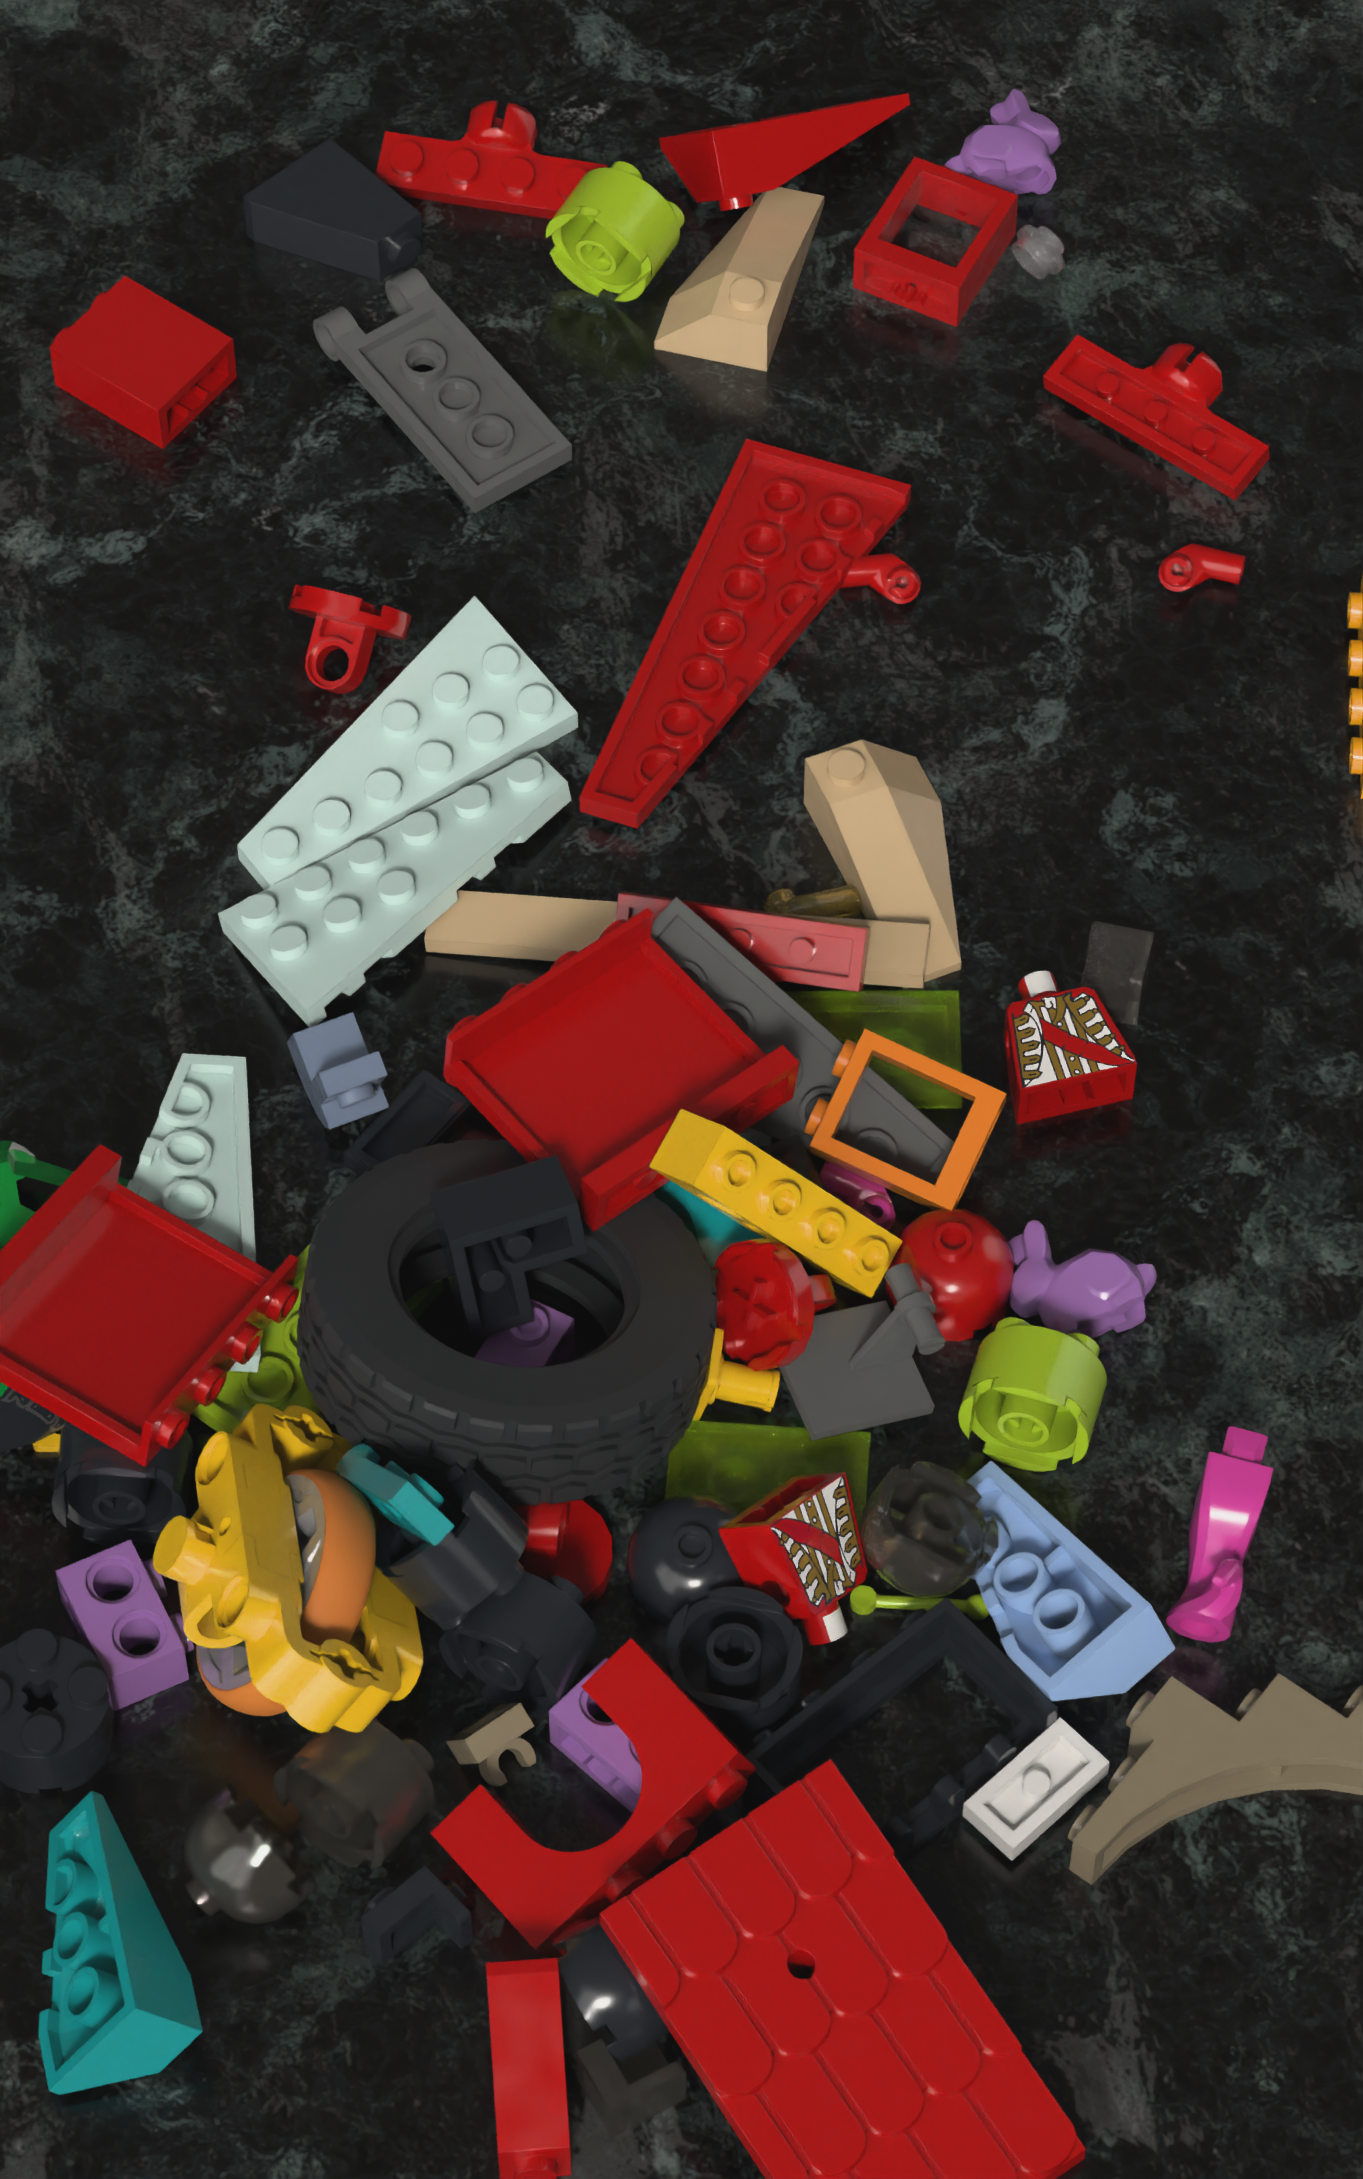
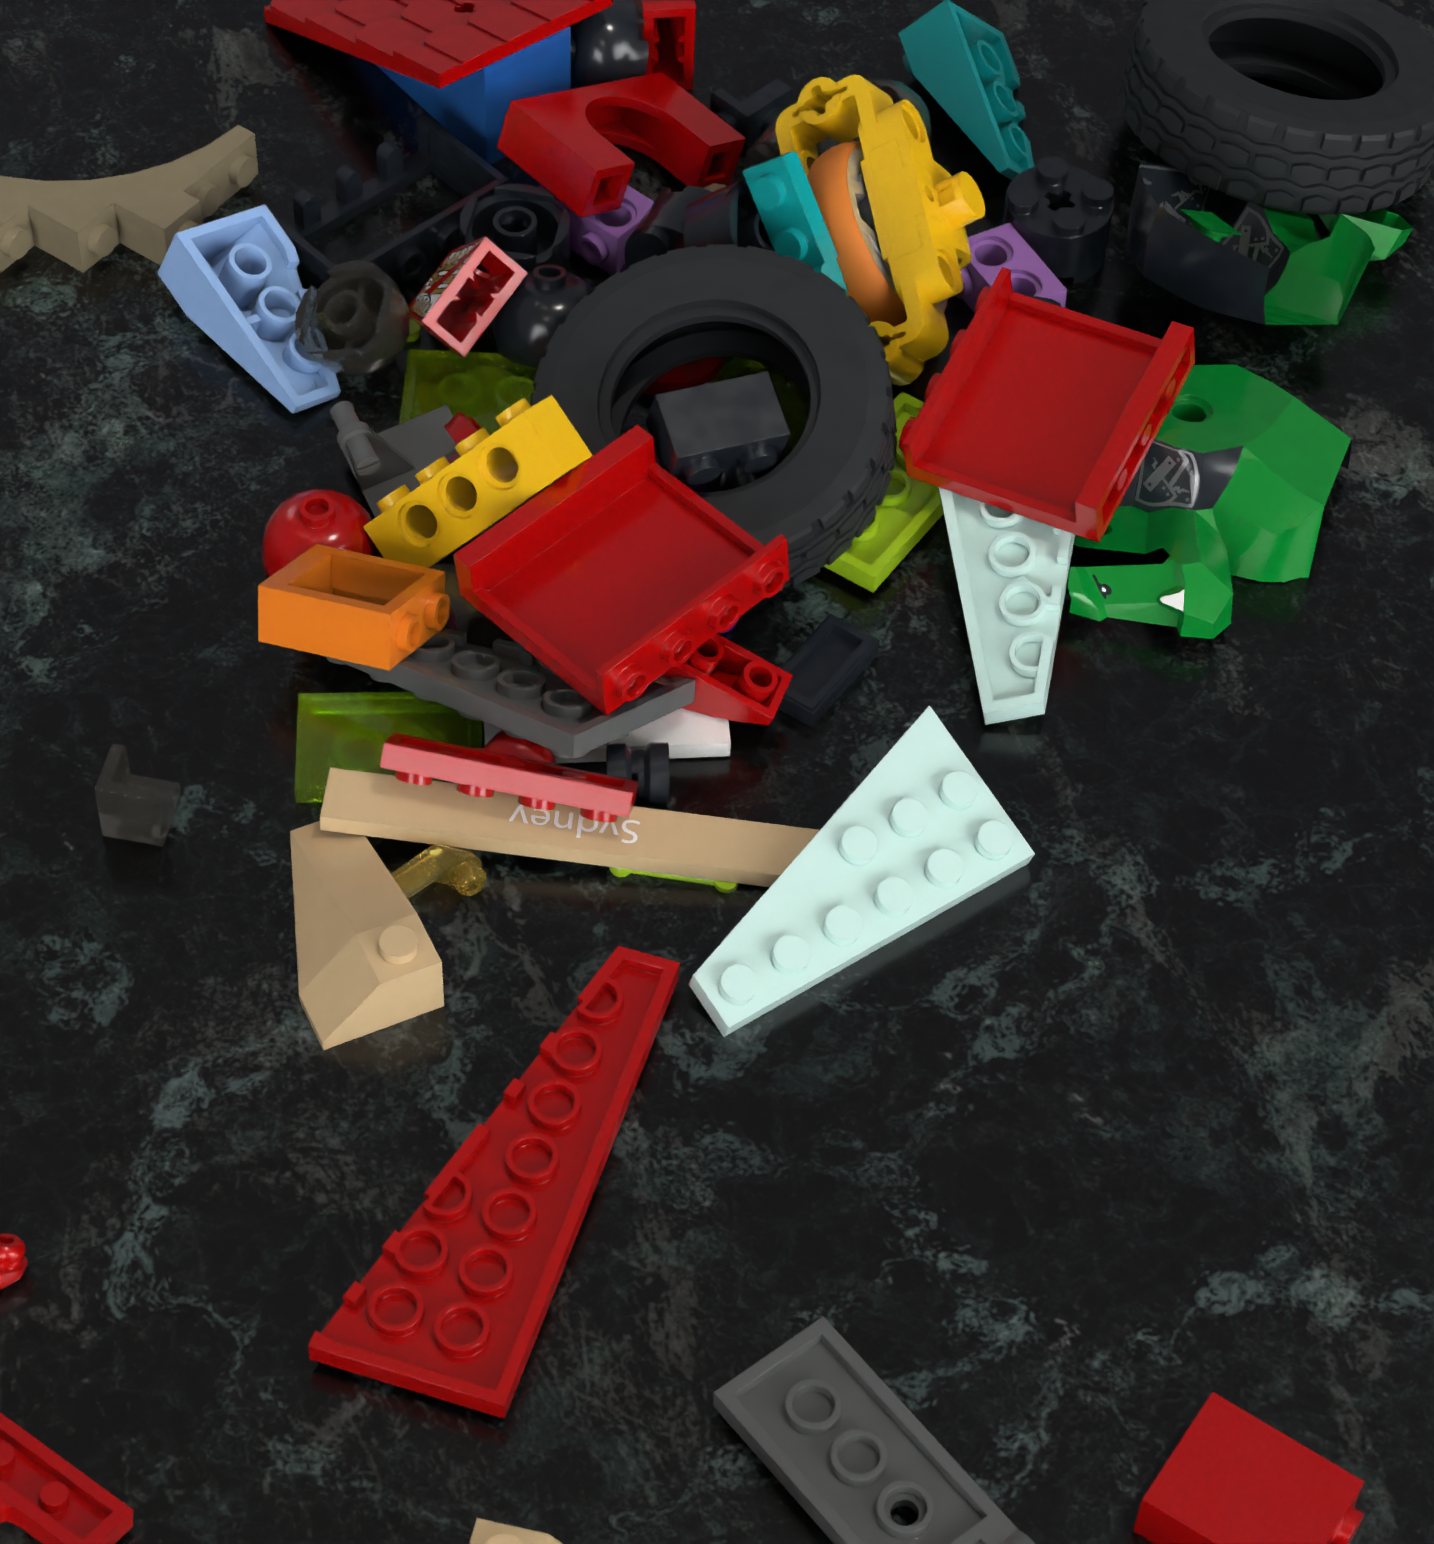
camera: 175 degrees right, 5 degrees down
(338, 1071) = (884, 678): sand blue brick -> none
(347, 625) = (947, 1140): red tile -> none
(440, 726) = (843, 1057): light aqua wing -> none
(886, 575) = (338, 1256): red arm -> none
(1033, 1395) = (255, 419): lime brick -> none
(1035, 1788) = (279, 187): white plate -> none
(1063, 1051) = (197, 726): torso -> none
(1082, 1294) = (204, 527): medium lavender animal -> none
(1220, 1536) = (103, 334): dark pink hips -> none

